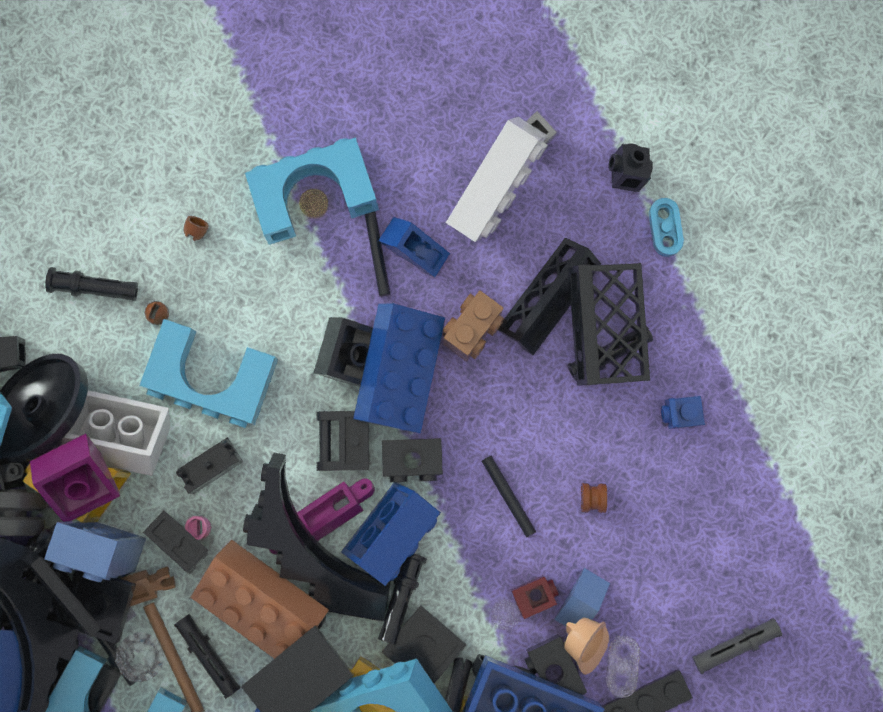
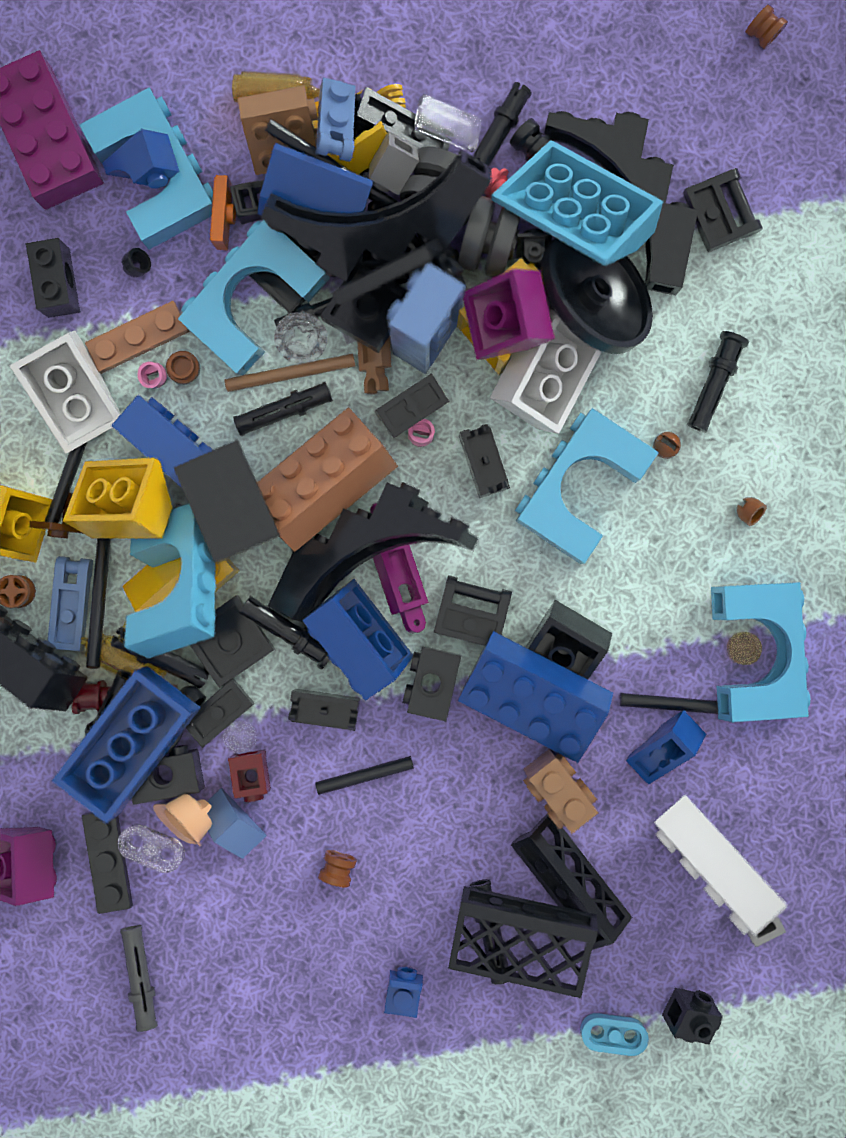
camera: 105 degrees right, 5 degrees up
(461, 546) = (324, 709): none -> black hinge
(488, 638) = (219, 712): none -> black plate

